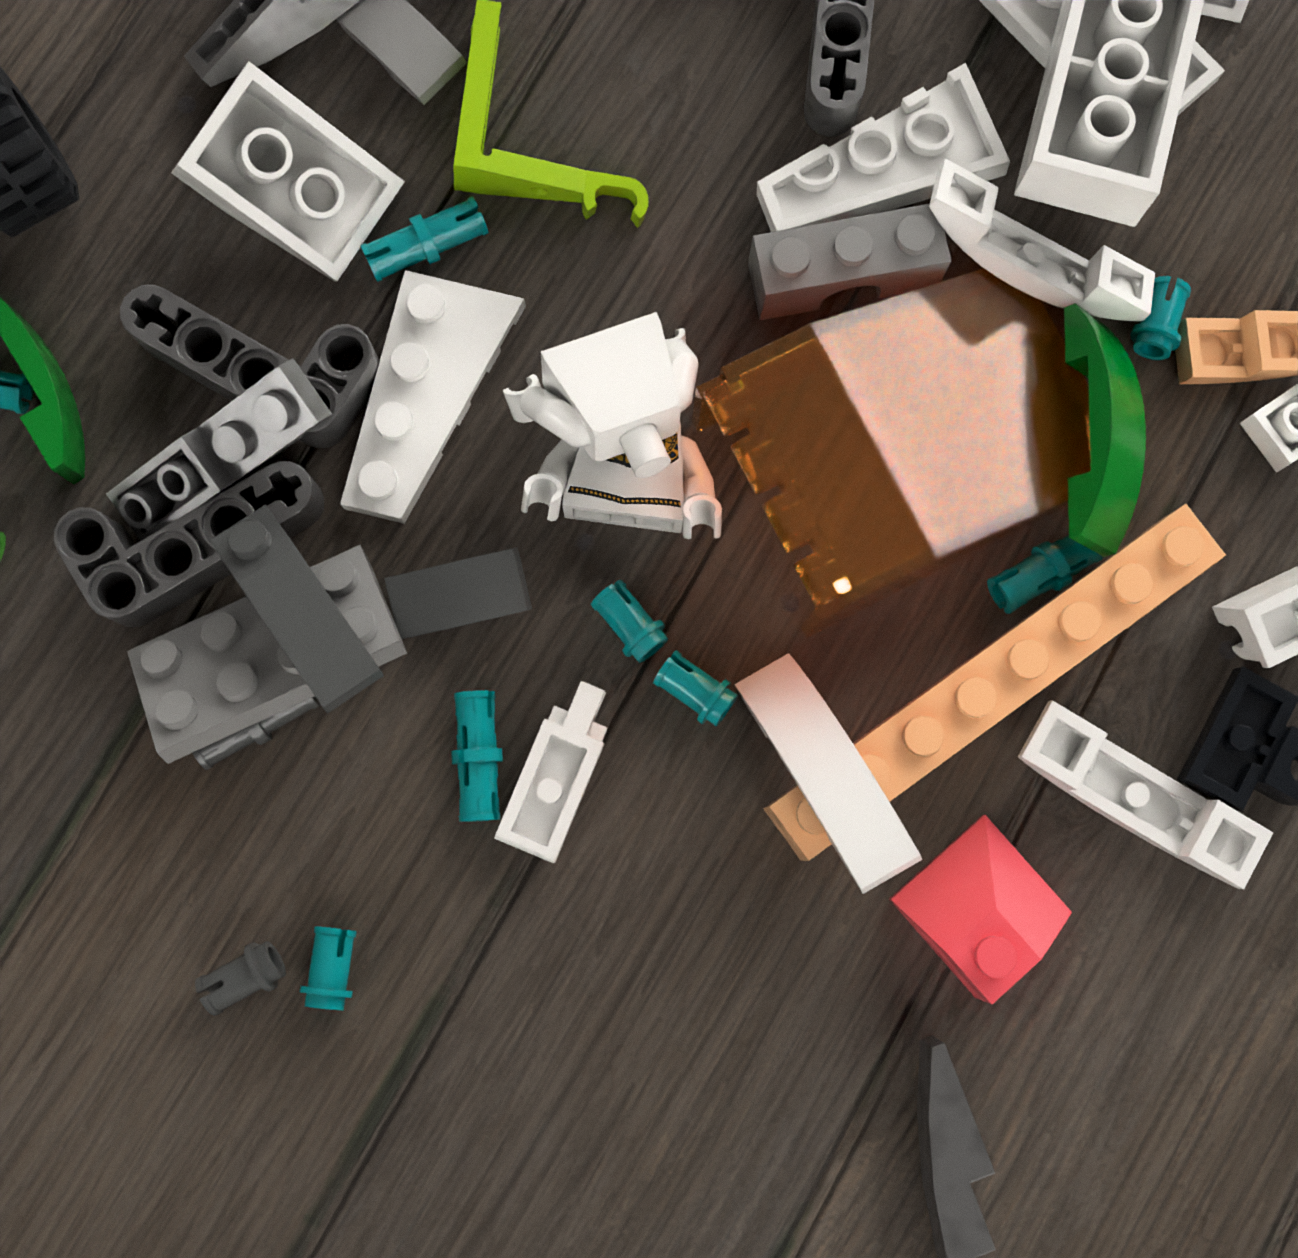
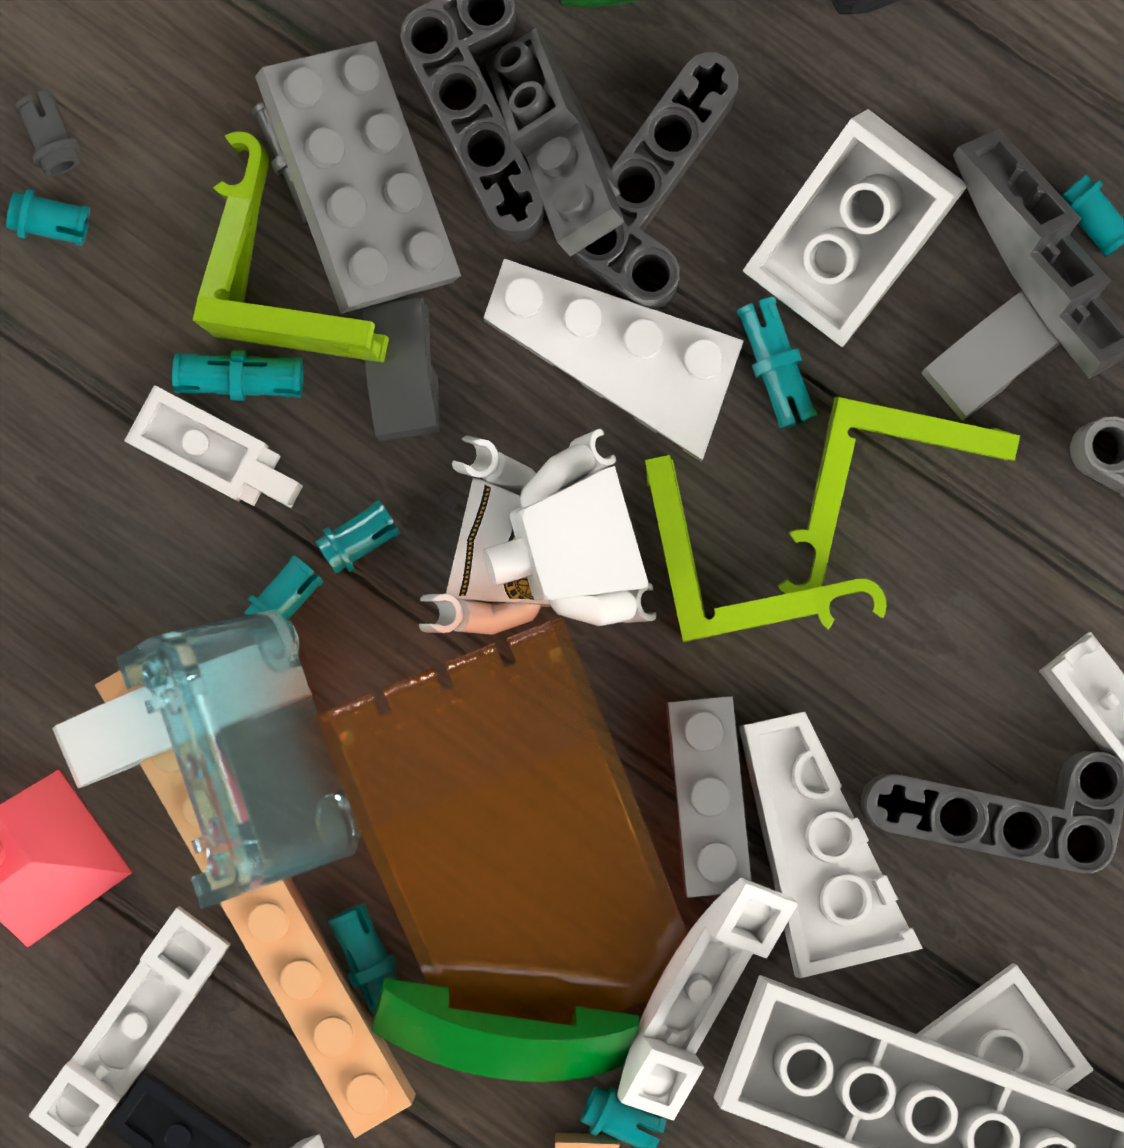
camera: 100 degrees right, 5 degrees up
(296, 608) = (385, 209): dark grey slope -> none
(420, 769) = (222, 294): none -> lime hinge
(667, 295) = (736, 617): none -> lime hinge
(867, 686) = (246, 751): none -> clear light blue windscreen

